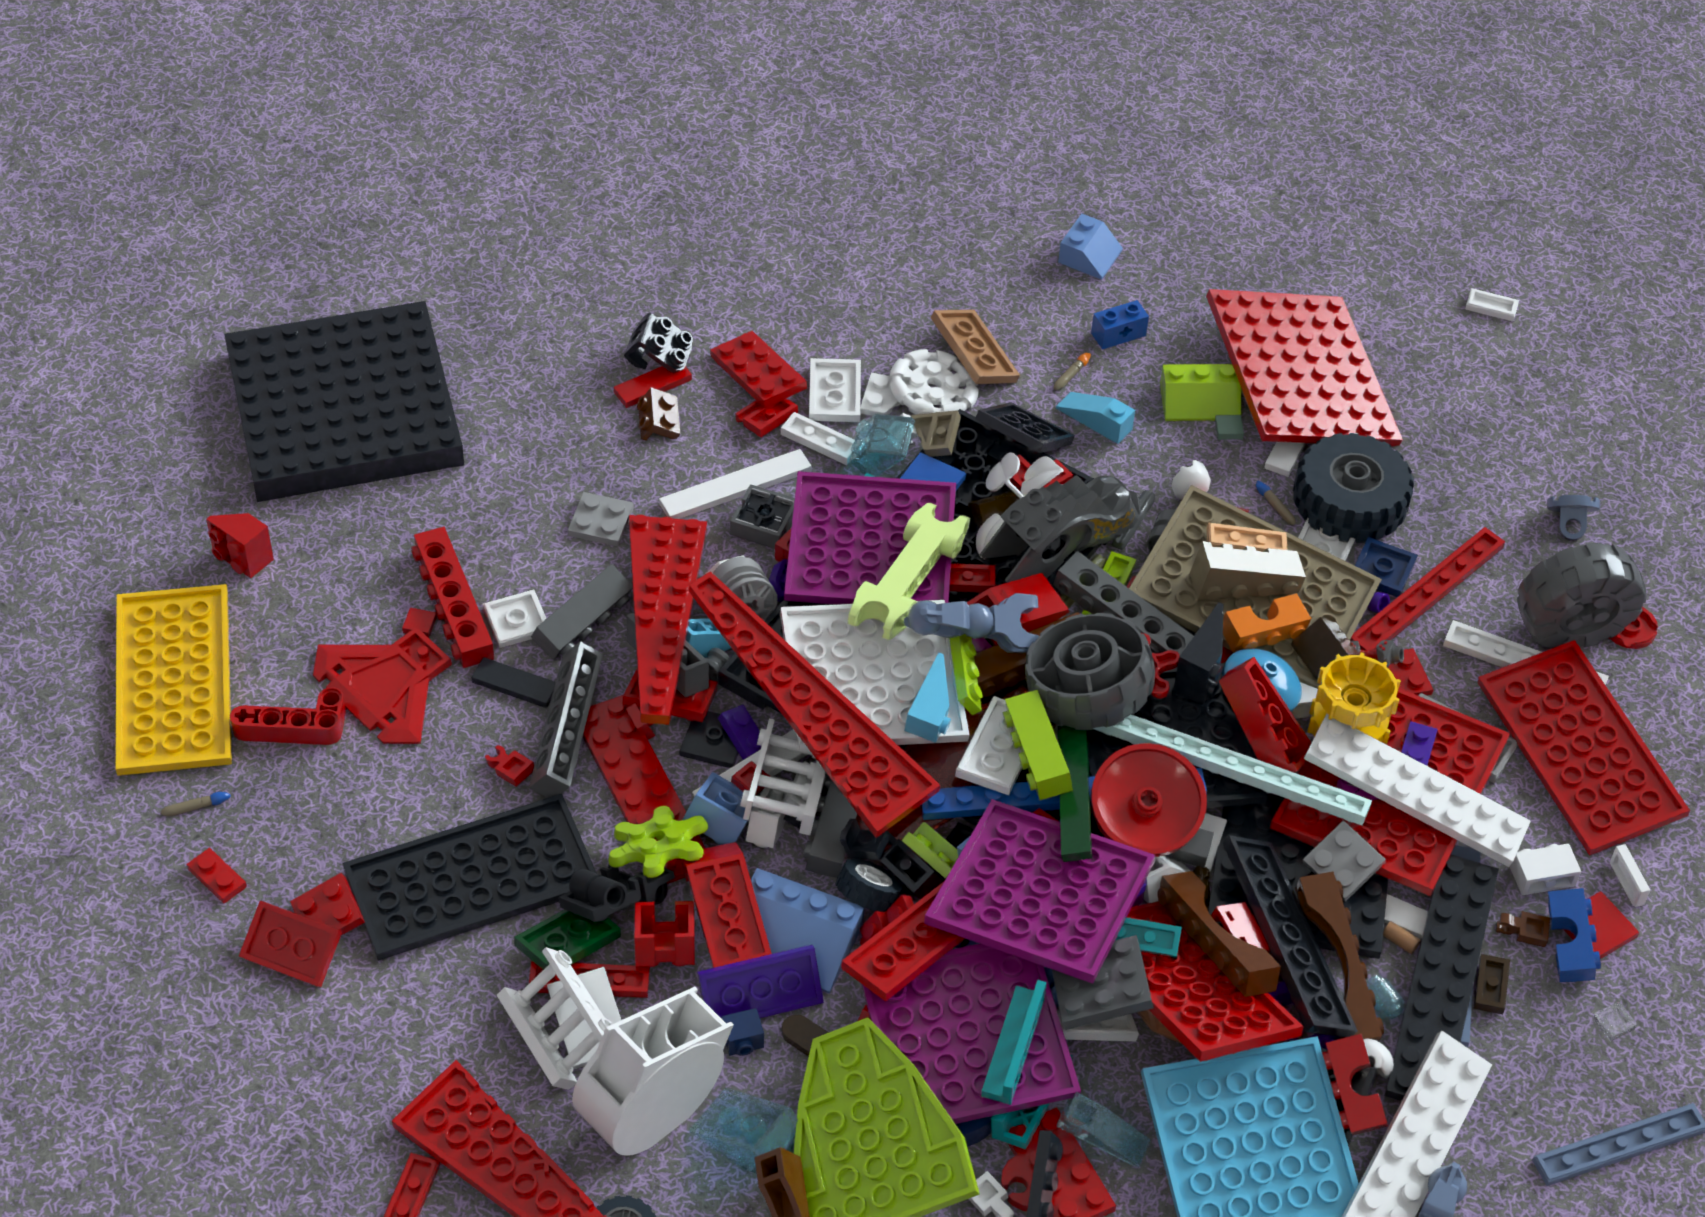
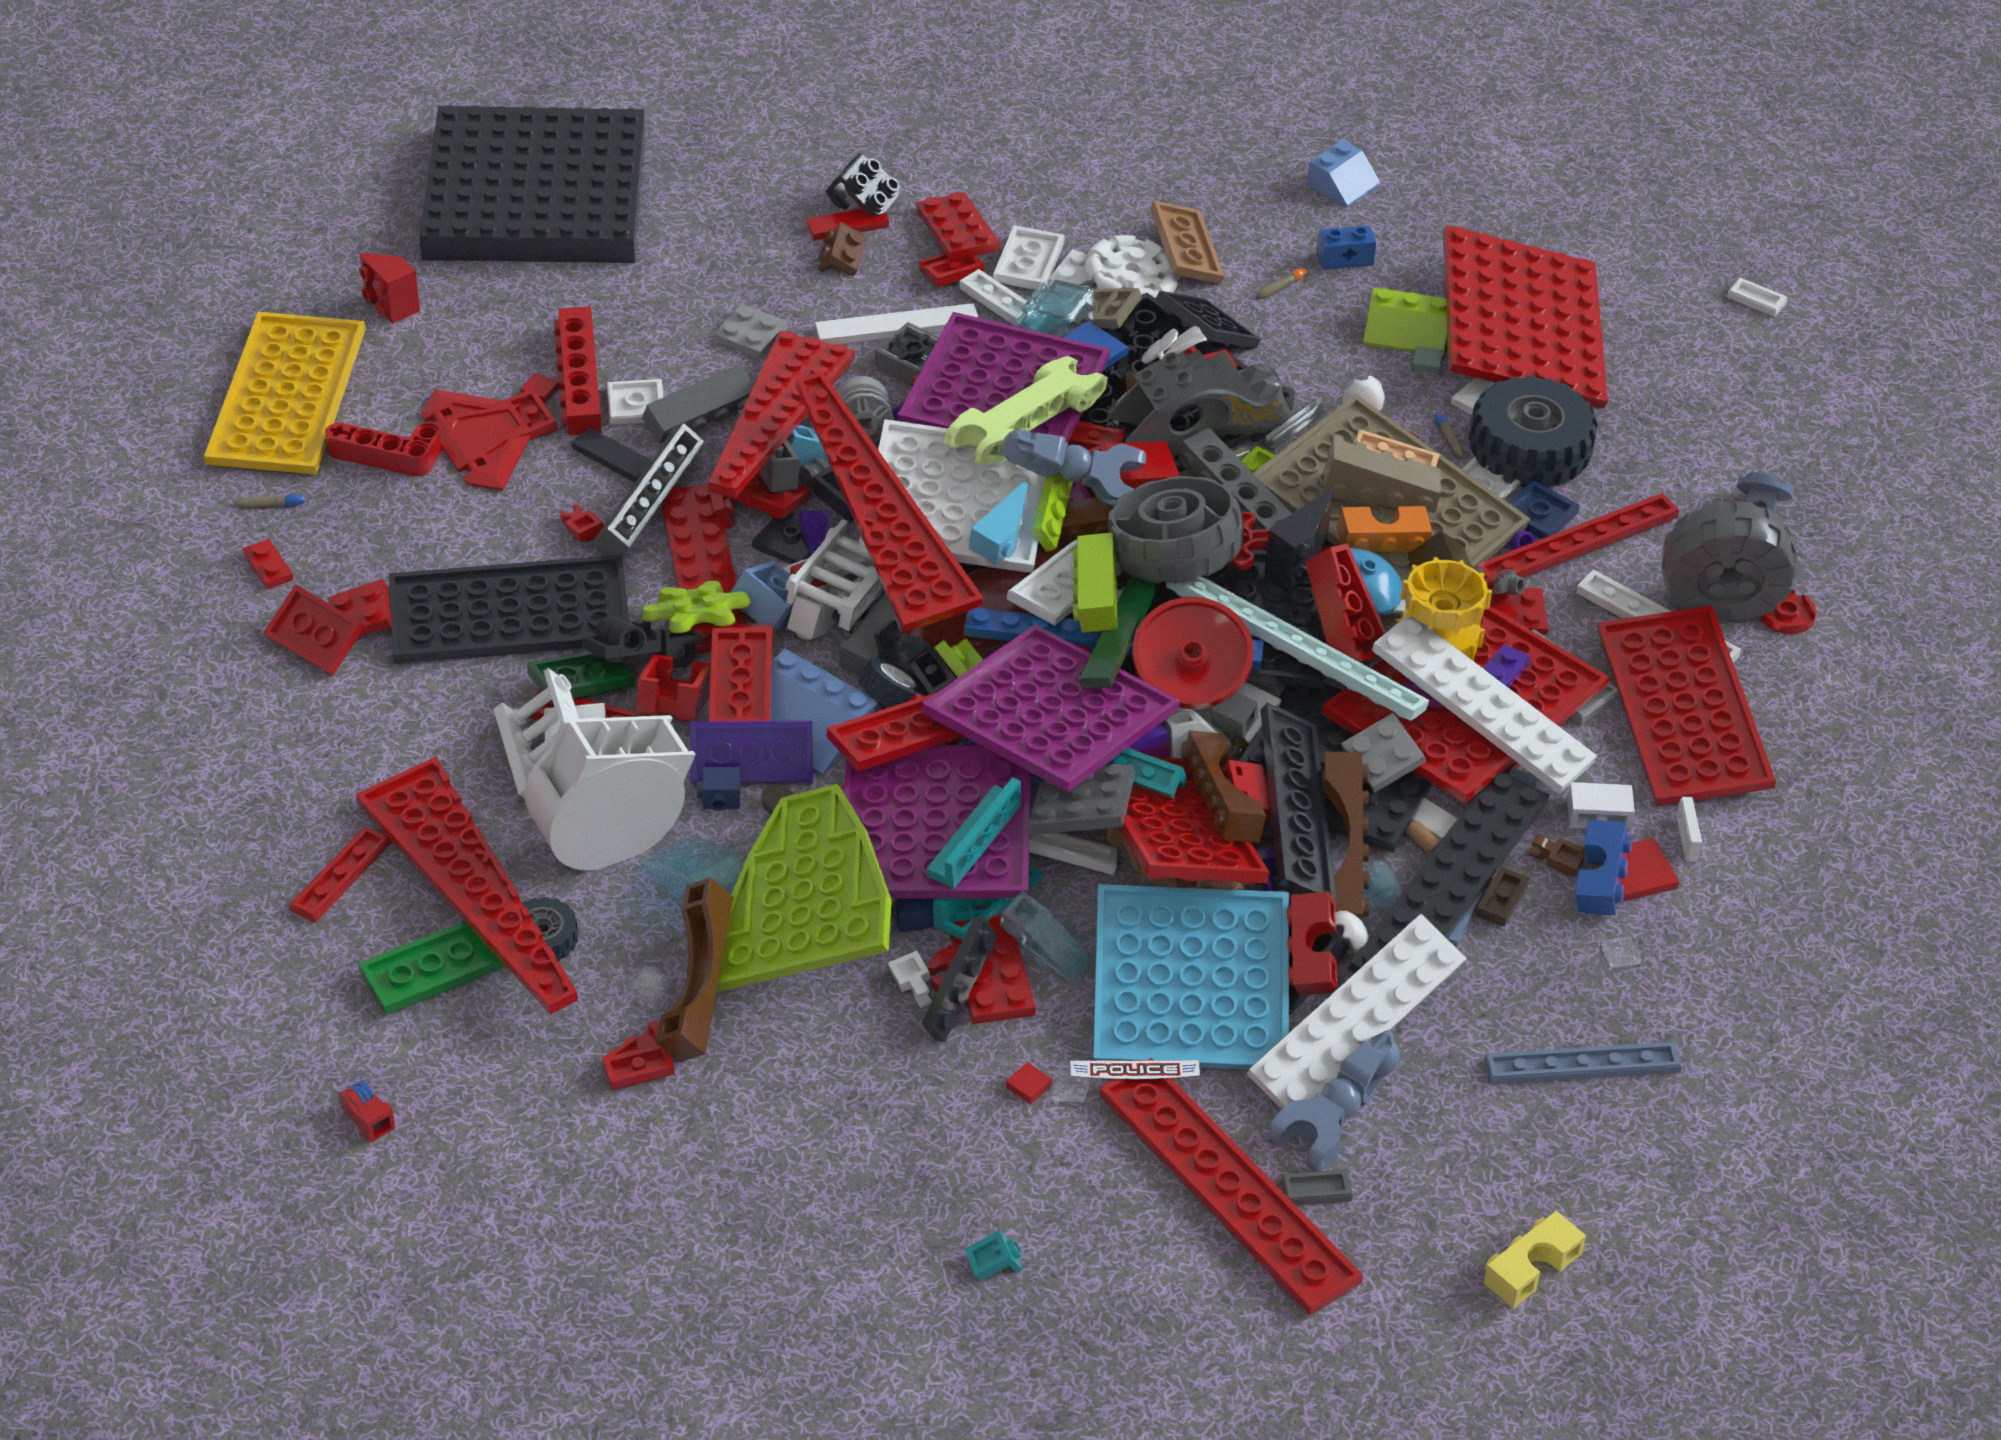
camera: 15 degrees right, 5 degrees down
(1100, 414) = (1295, 324): medium azure slope -> none

